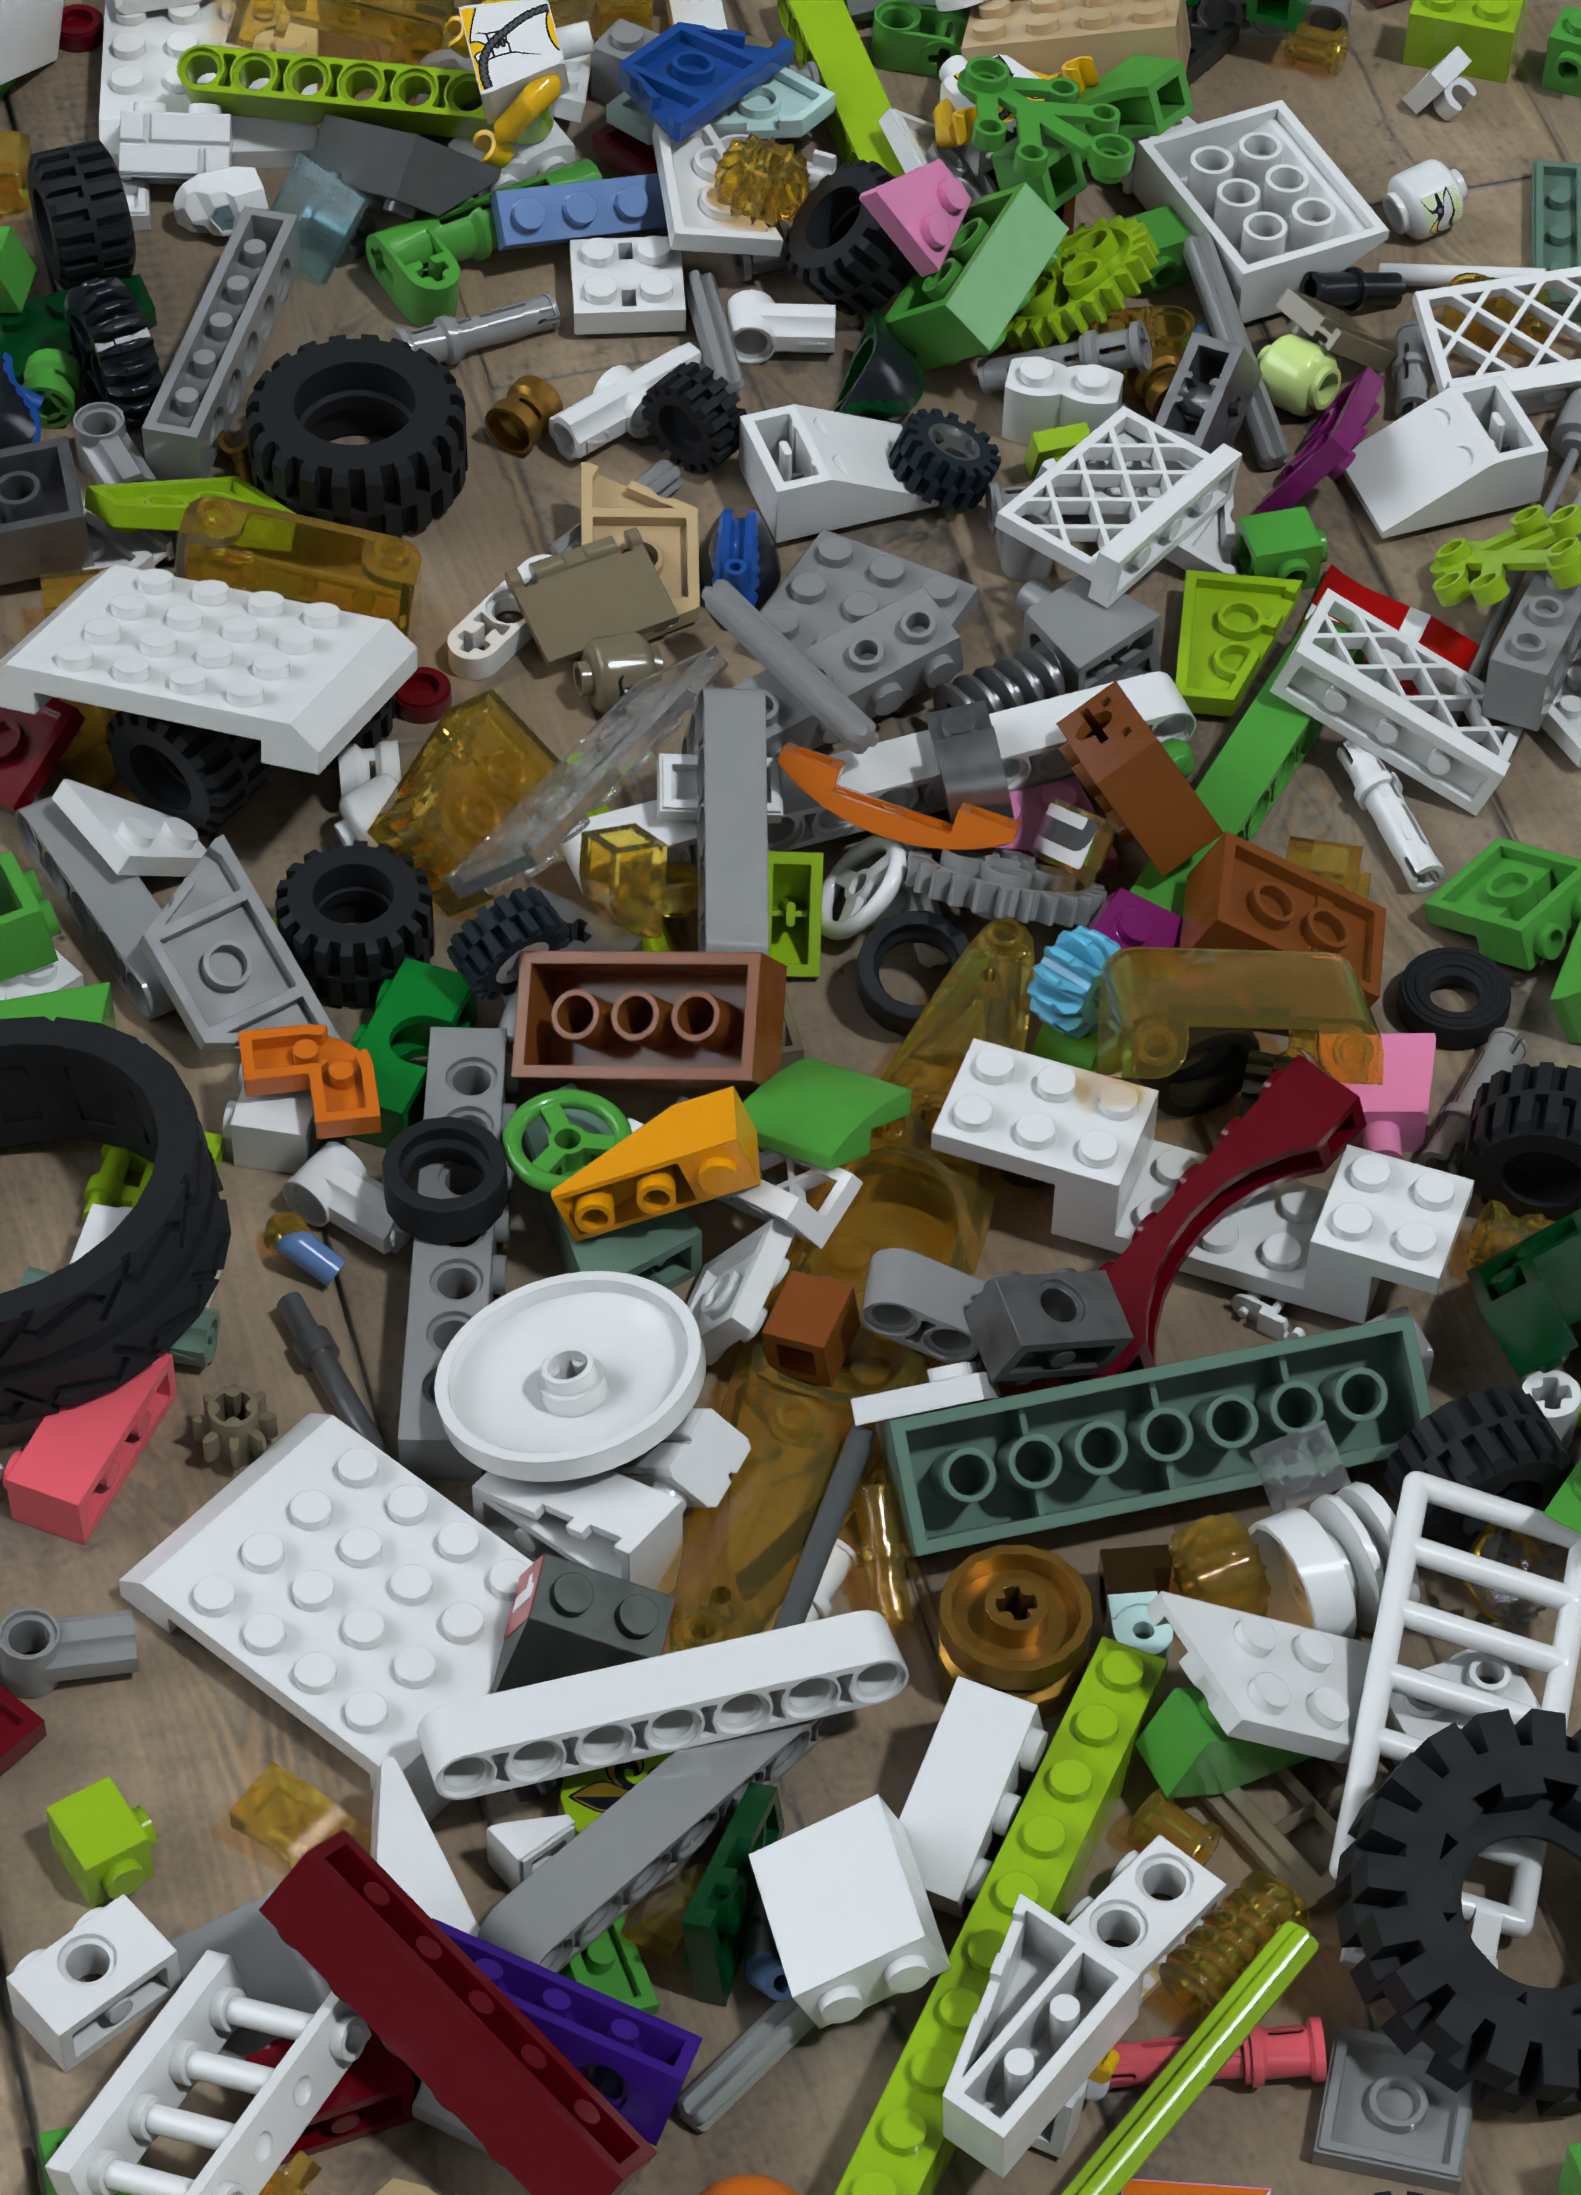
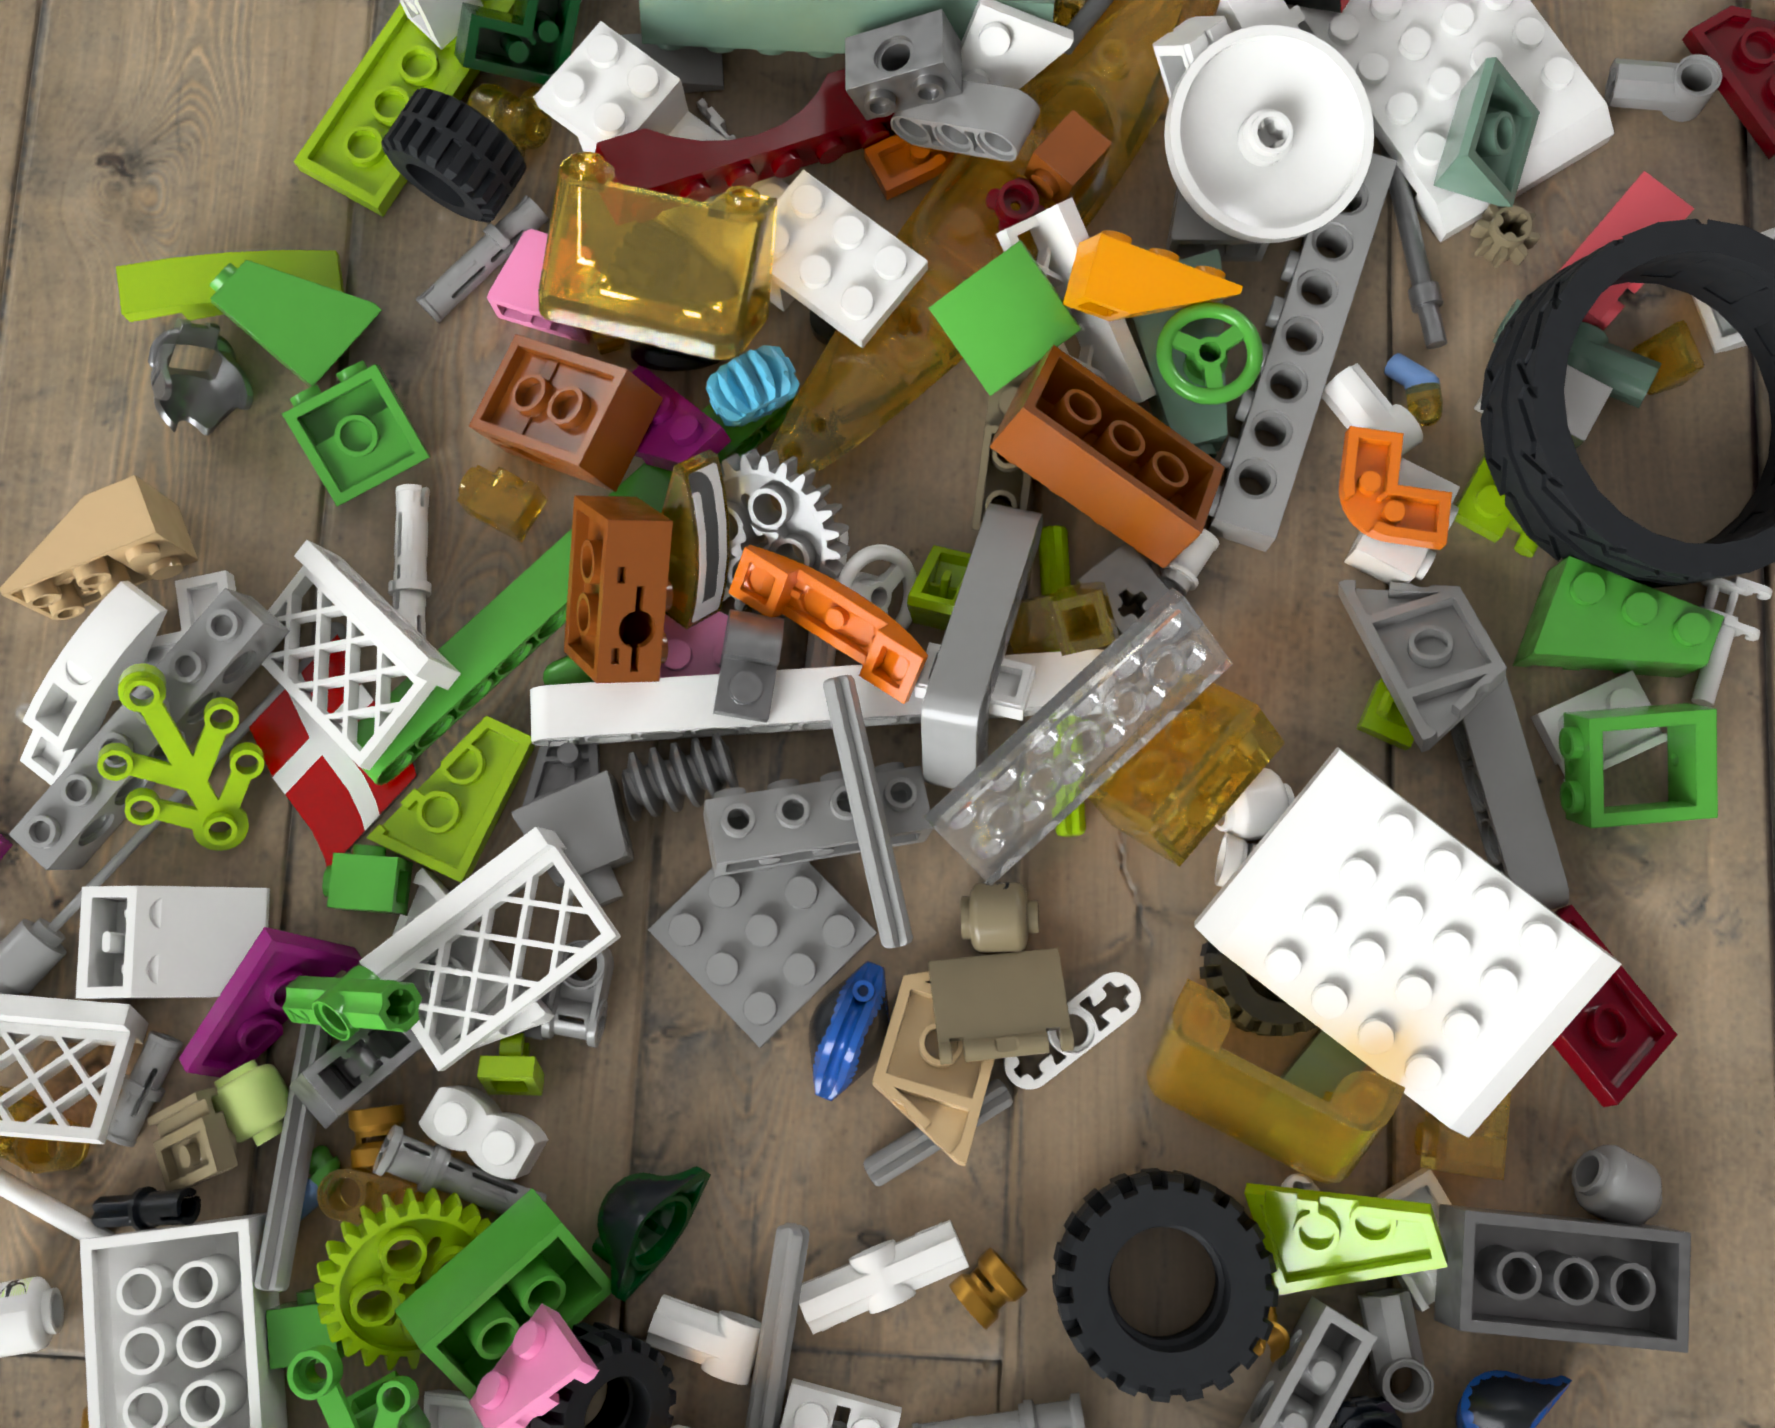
camera: 155 degrees left, 30 degrees up
(130, 835) = (1490, 823): white wing -> none
(291, 1457) = (1488, 137): none -> sand green slope
(351, 887) = (1335, 654): black tyre -> none
(400, 1030) = (1269, 581): green arch -> none
(423, 696) = (1173, 960): dark red tile -> none
(442, 1141) = (1332, 324): black tyre -> none
(491, 943) = (1204, 563): black wheel -> none
(693, 417) = (835, 1209): black tyre -> none
(736, 1285) = (1124, 197): white plate -> none
(821, 470) = (722, 1111): white slope -> none
(847, 1258) = (1014, 191): none -> dark red plate
(891, 932) = (880, 464): black tyre -> none
(944, 459) = (601, 1080): black wheel -> none
(1230, 416) = (352, 1003): none -> bright green piece
(1456, 968) = (430, 342): black tyre -> none

